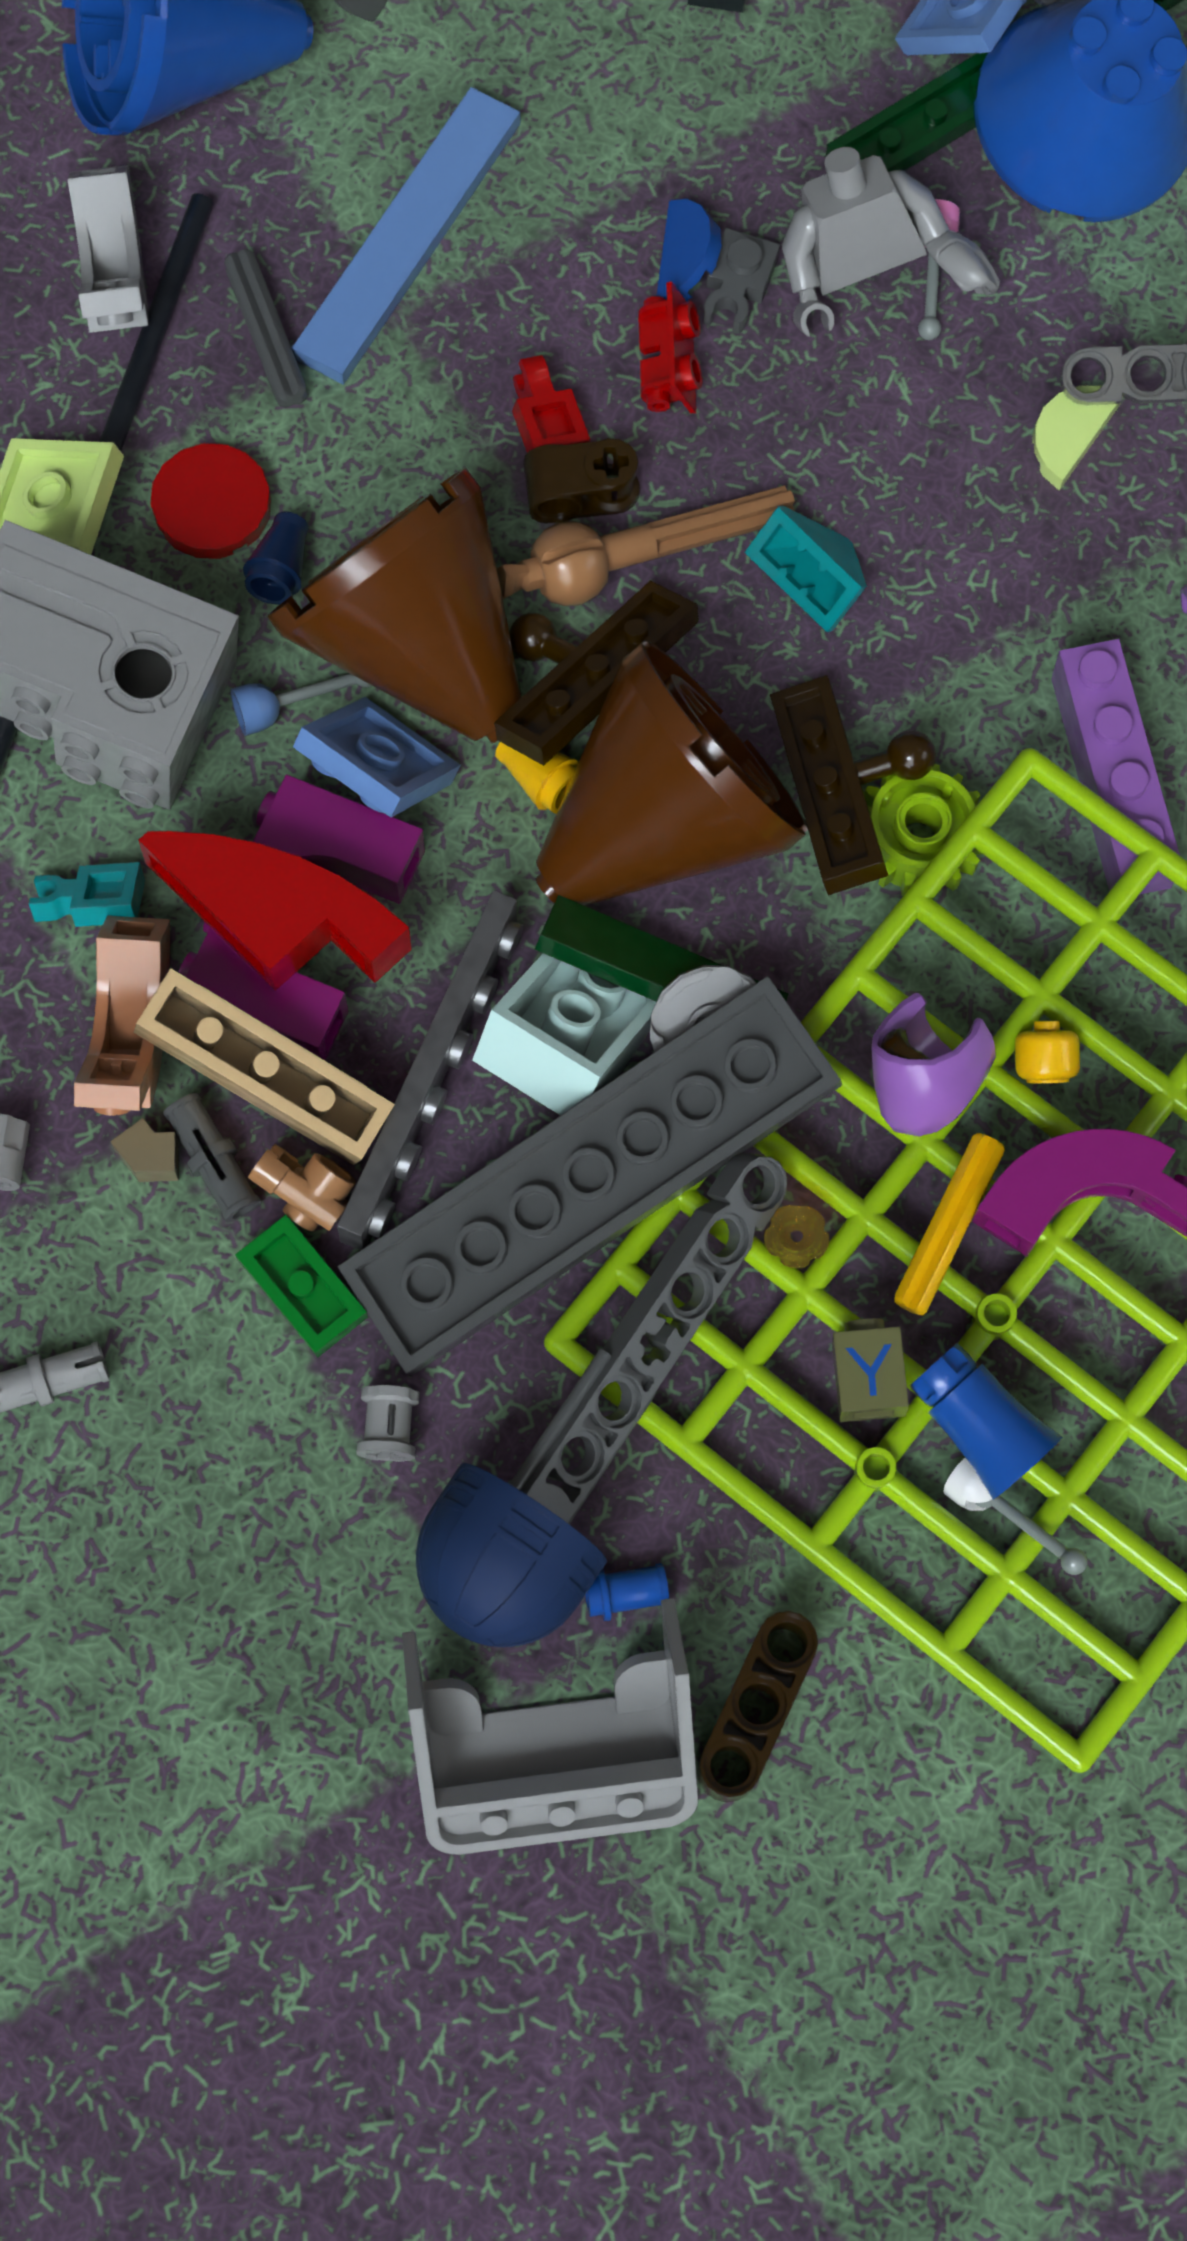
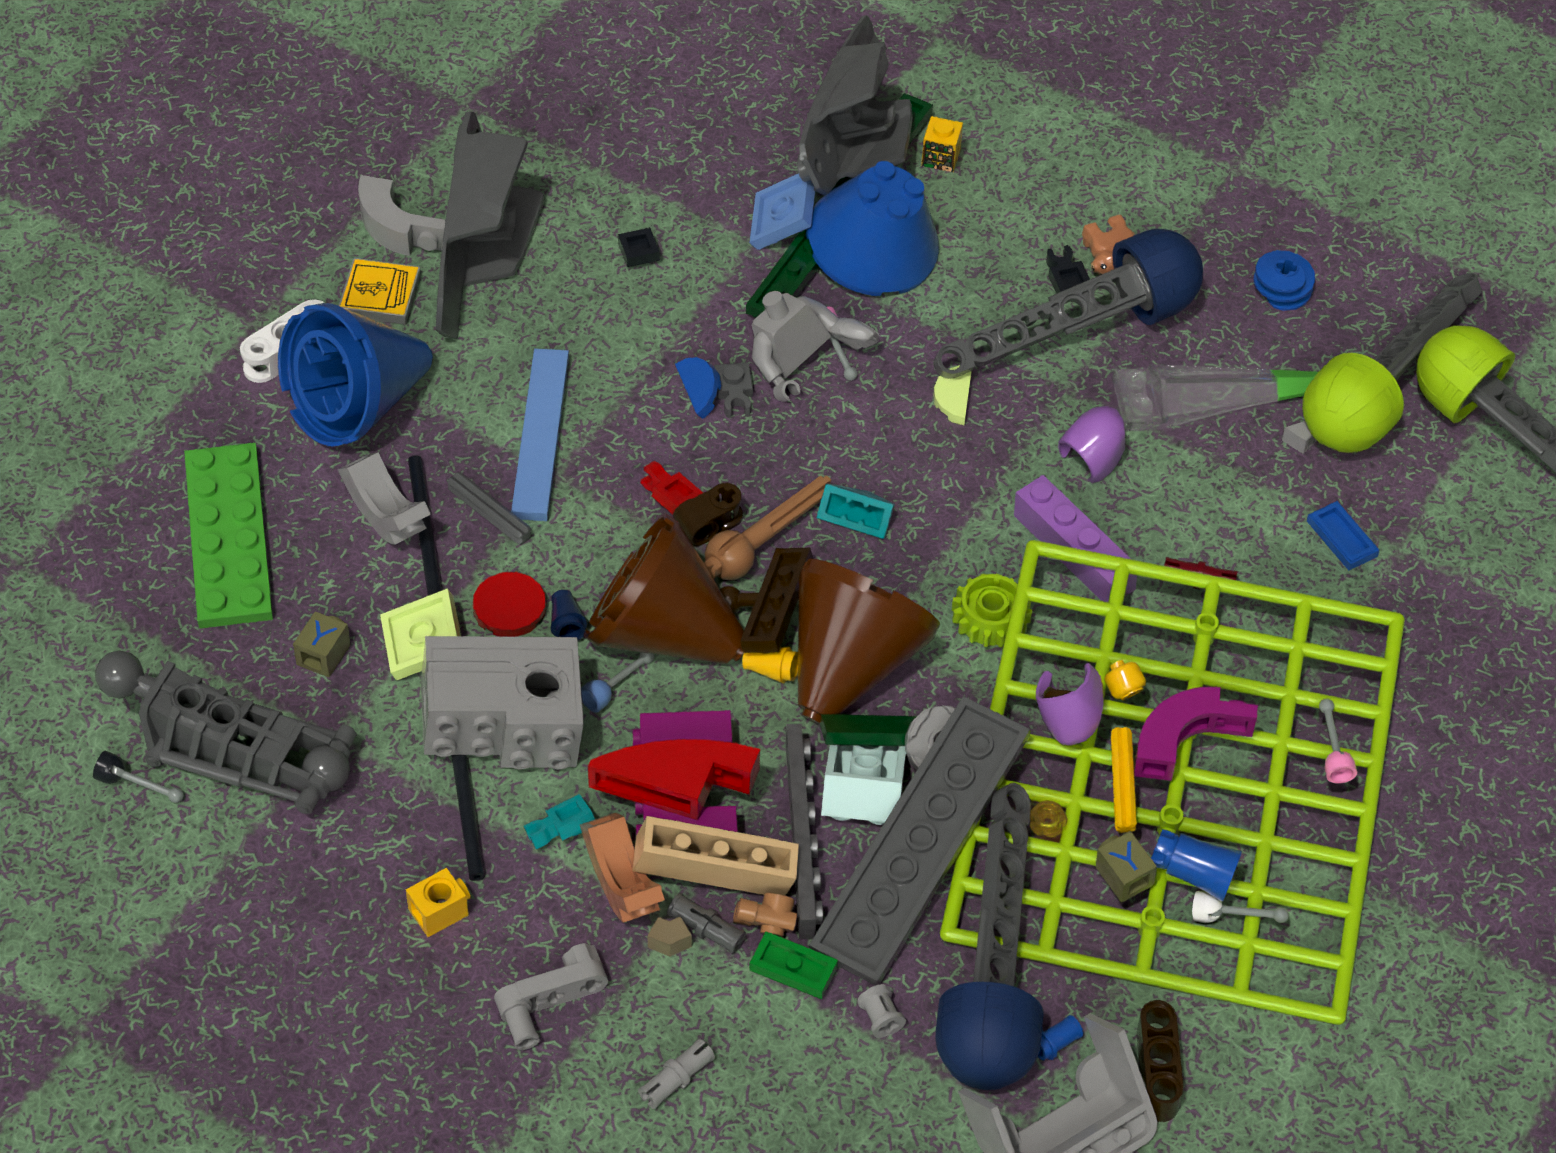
camera: 25 degrees left, 20 degrees down
(376, 757) = (694, 689): medium blue plate -> none
(669, 329) = (727, 445): red hinge -> none
(832, 781) = (957, 619): dark brown plate -> none

